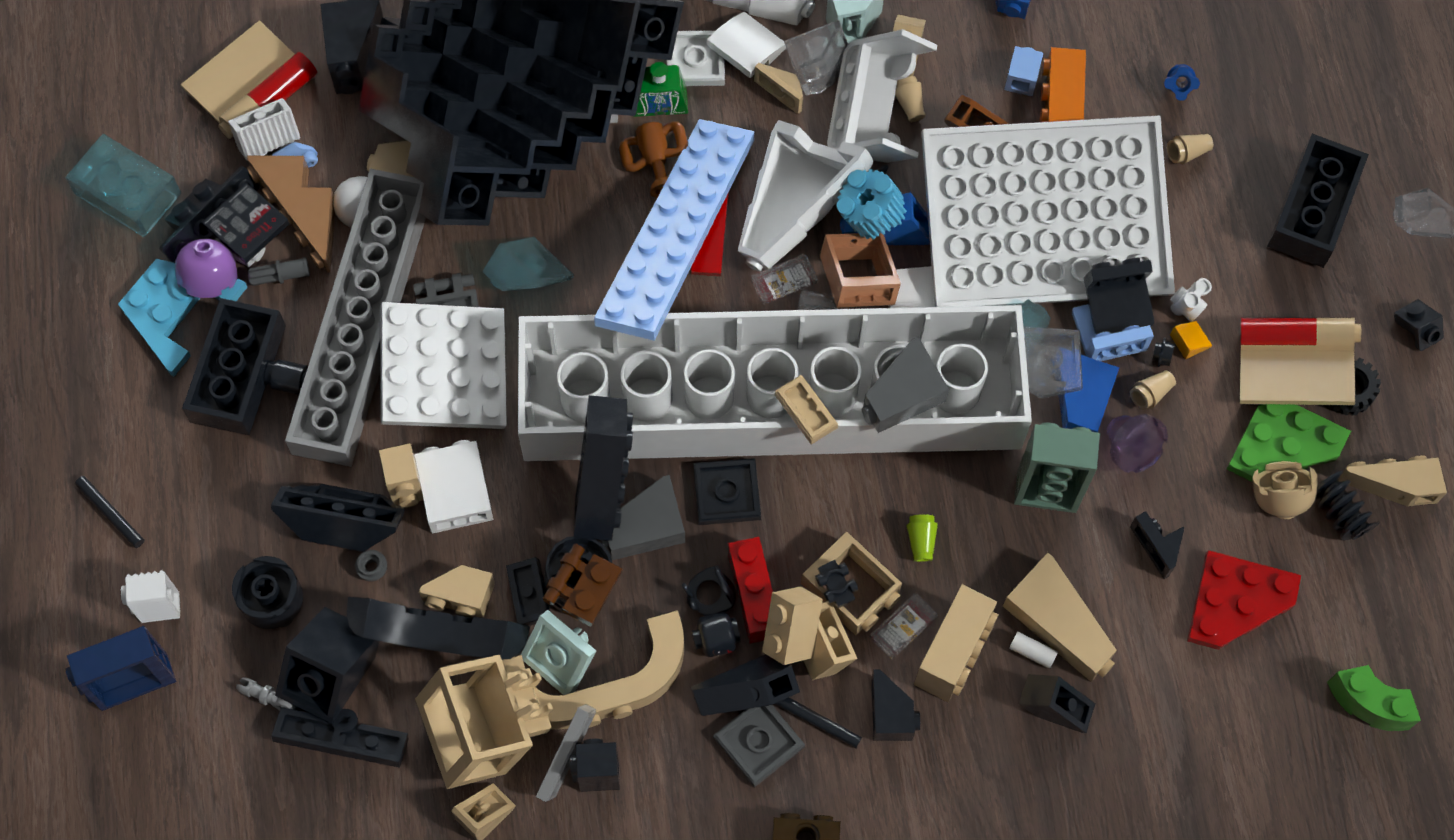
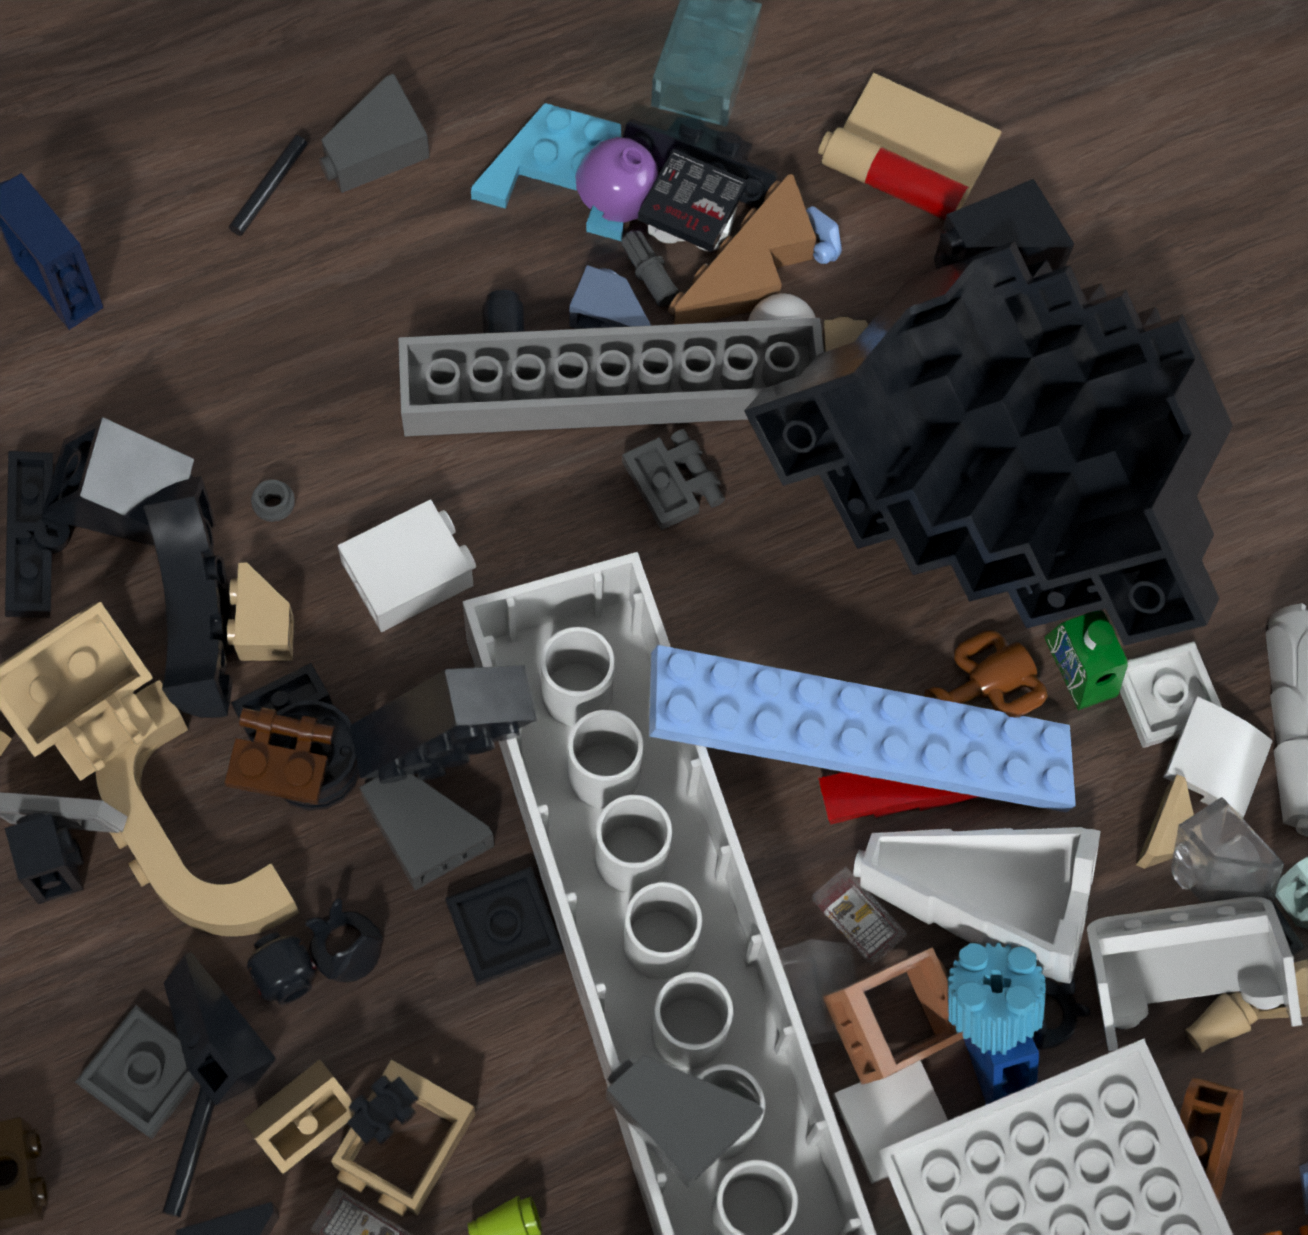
camera: 70 degrees right, 0 degrees up
(103, 423) = (374, 138): none -> dark grey slope
(151, 597) = (155, 259): white brick -> none
(233, 366) = (475, 250): black brick -> none
(258, 578) = (196, 388): black brick -> none
(264, 129) = (839, 182): white brick -> none
(265, 694) = (70, 425): light grey piece -> none
(303, 304) = (605, 302): none -> sand blue slope
(337, 515) = (327, 434): black wedge -> none
(401, 475) = (392, 487): tan brick -> none
(442, 366) = (568, 490): white plate -> none
(525, 266) = (754, 561): clear light blue slope -> none
(558, 653) = (197, 764): light aqua tile -> none
(753, 583) = (335, 1009): red arch -> none
(792, 625) = (297, 1061): tan brick -> none
(806, 409) = (605, 979): tan plate -> none

